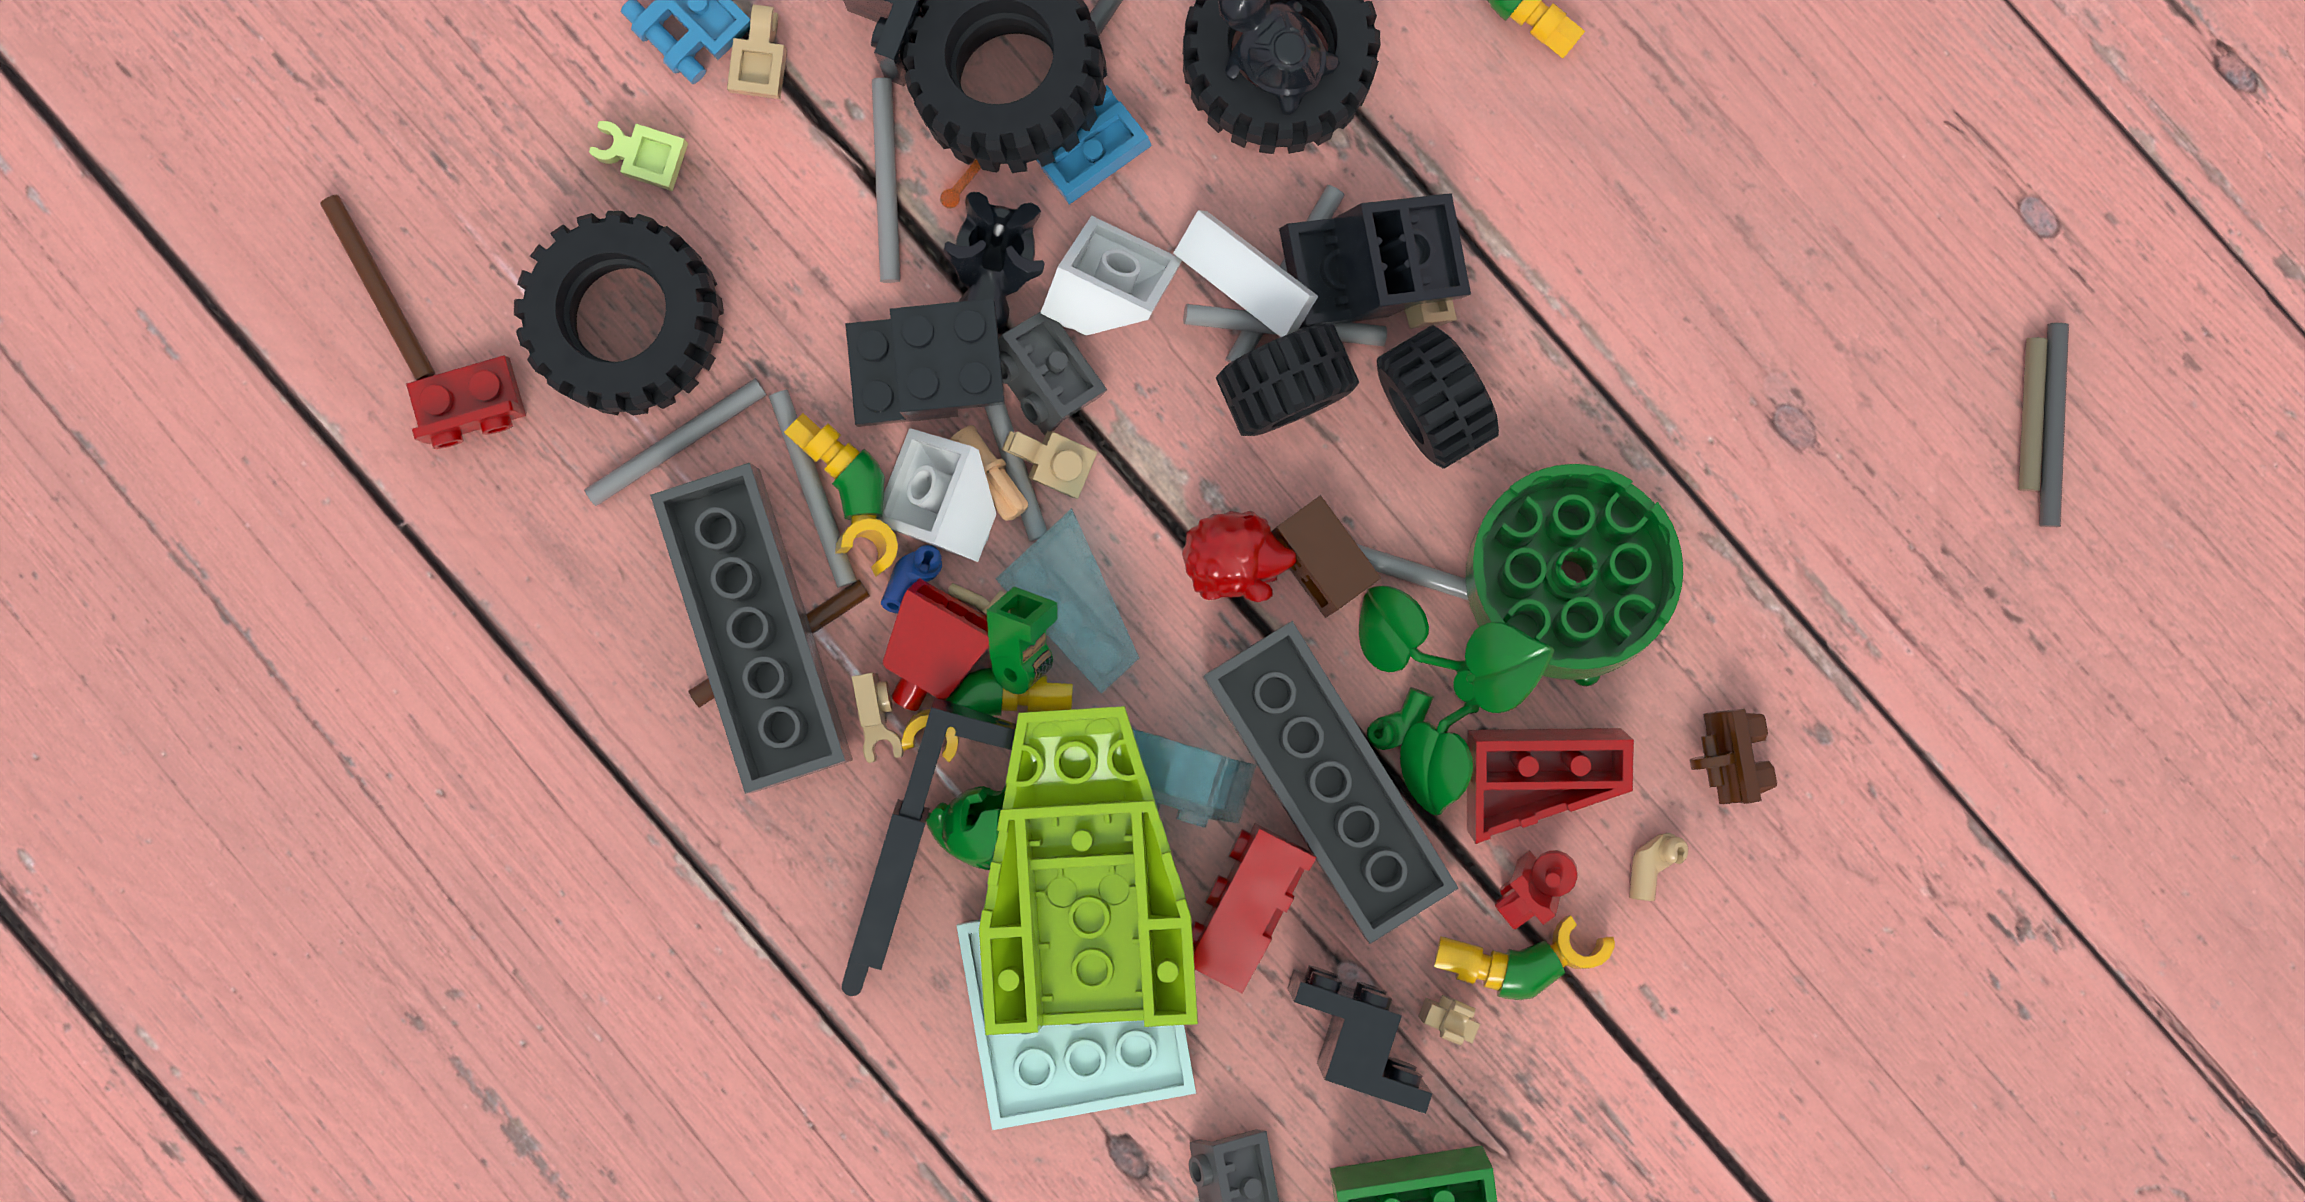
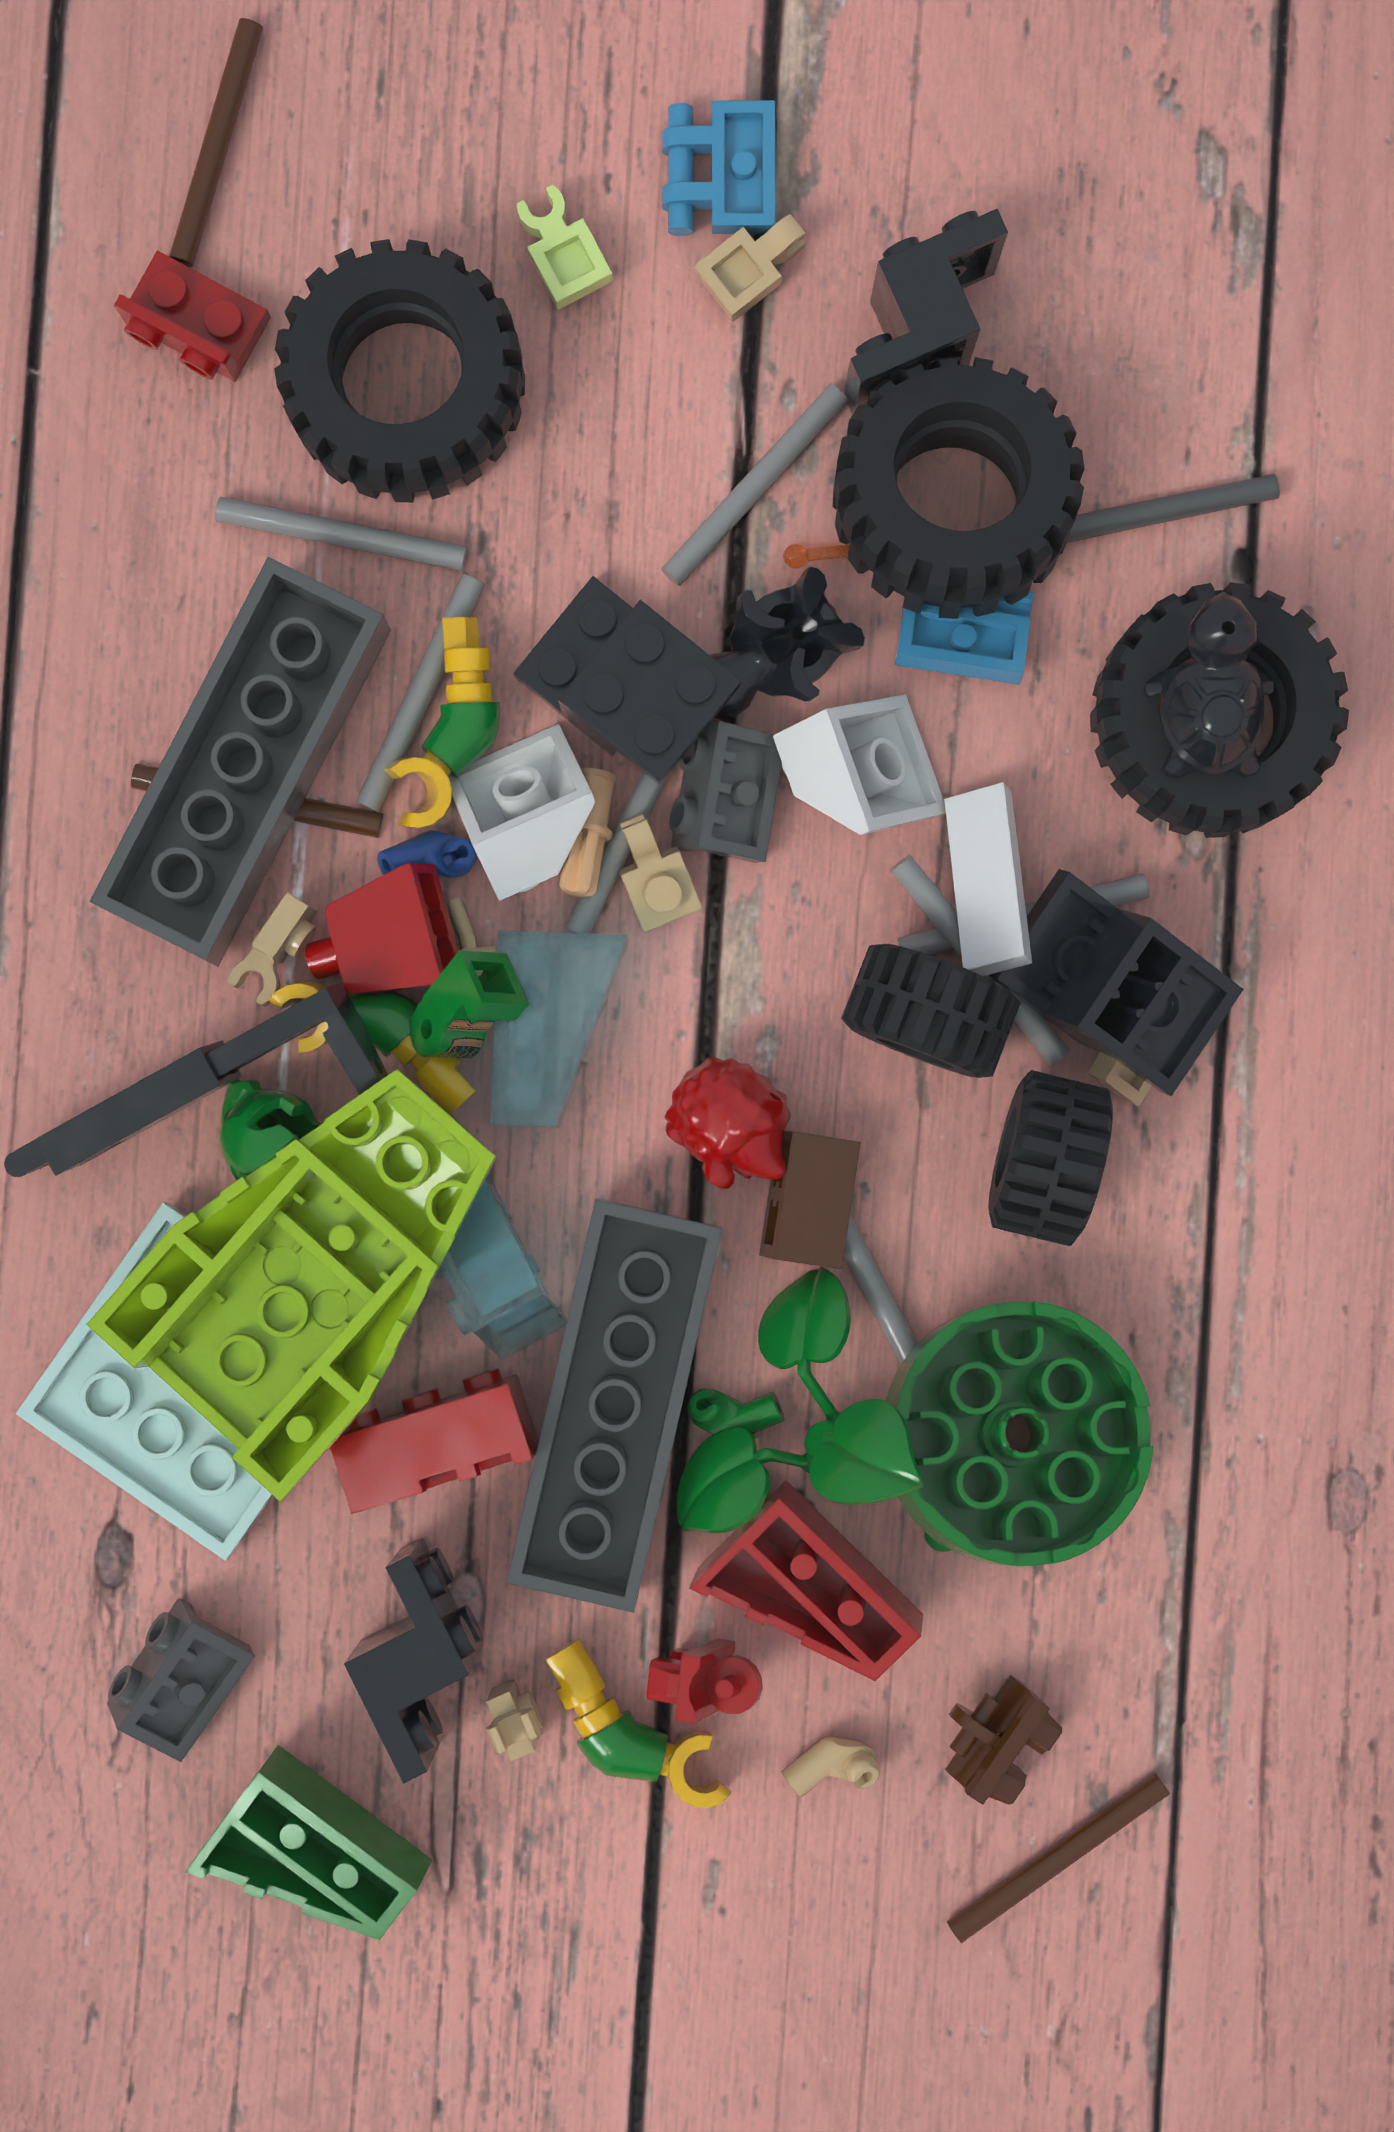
camera: 55 degrees right, 0 degrees up
(1832, 789) = (1058, 1857): none -> reddish brown bar

